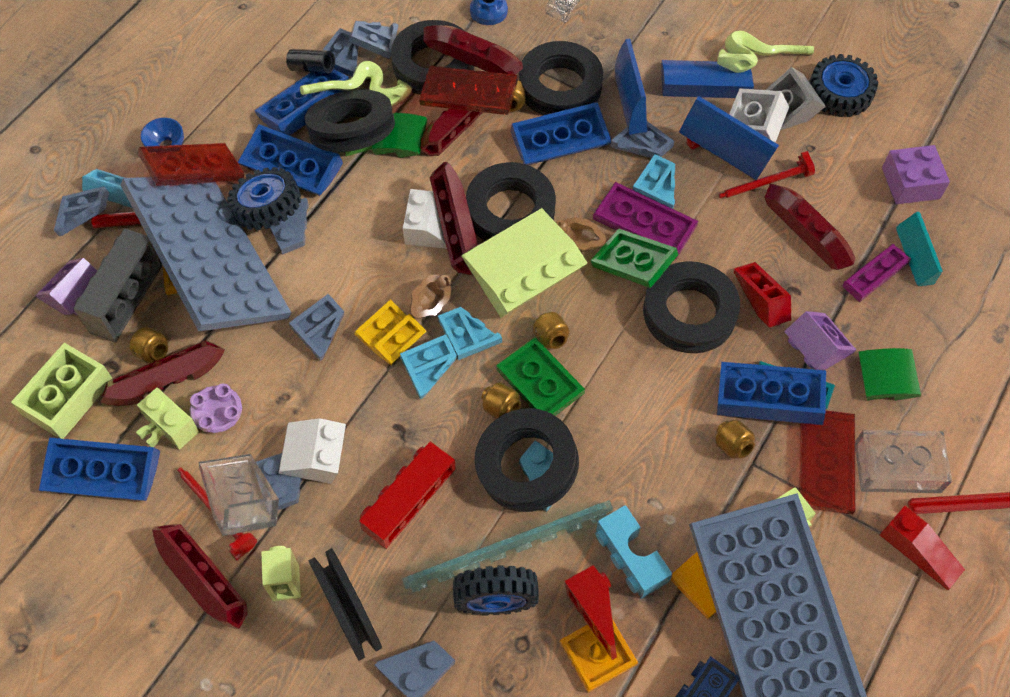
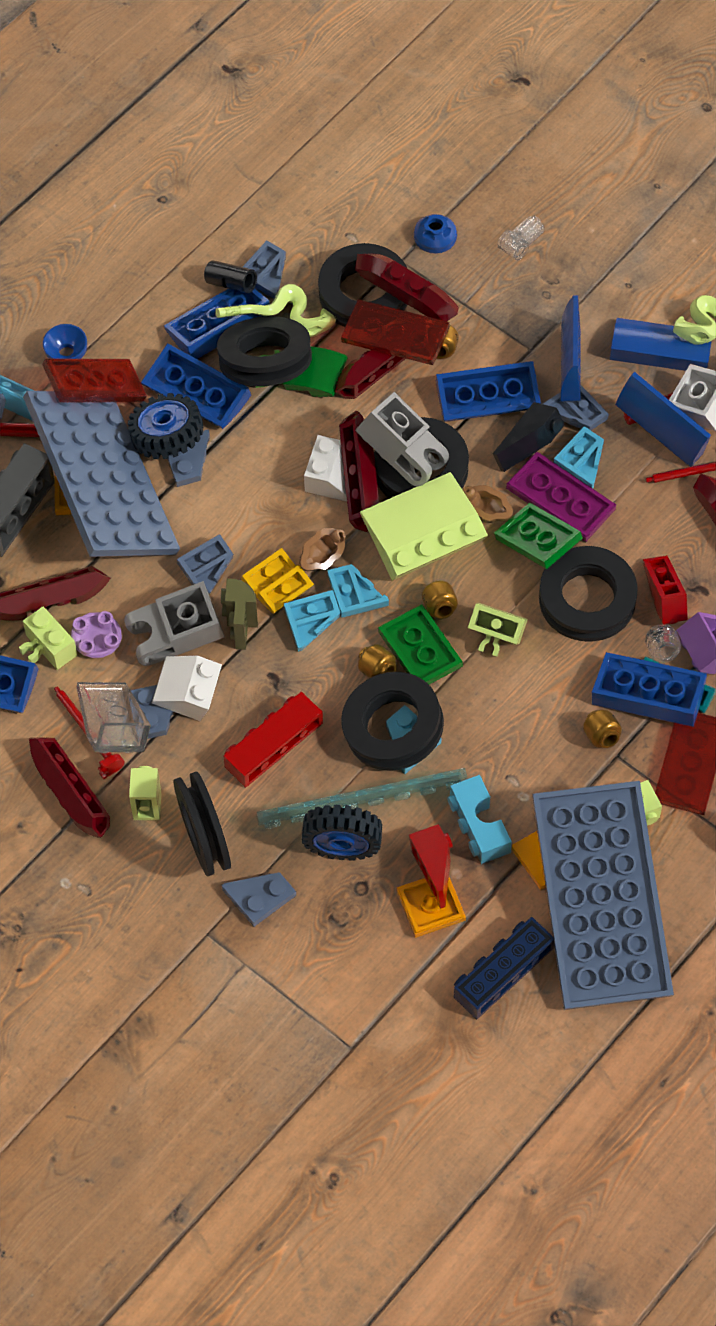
camera: 10 degrees right, 0 degrees up
(148, 344) = (36, 563): pearl gold head -> none
(295, 388) = (176, 623): none -> light grey brick
(357, 364) = (240, 609): none -> olive brick
(374, 37) = (303, 256): sand blue wing -> none
(492, 183) = (403, 440): none -> light grey brick
(560, 55) = (504, 300): black tyre -> none
(606, 168) = (530, 434): none -> black slope
(613, 348) = (496, 624): none -> yellowish green brick
(774, 346) = (663, 643): none -> clear head

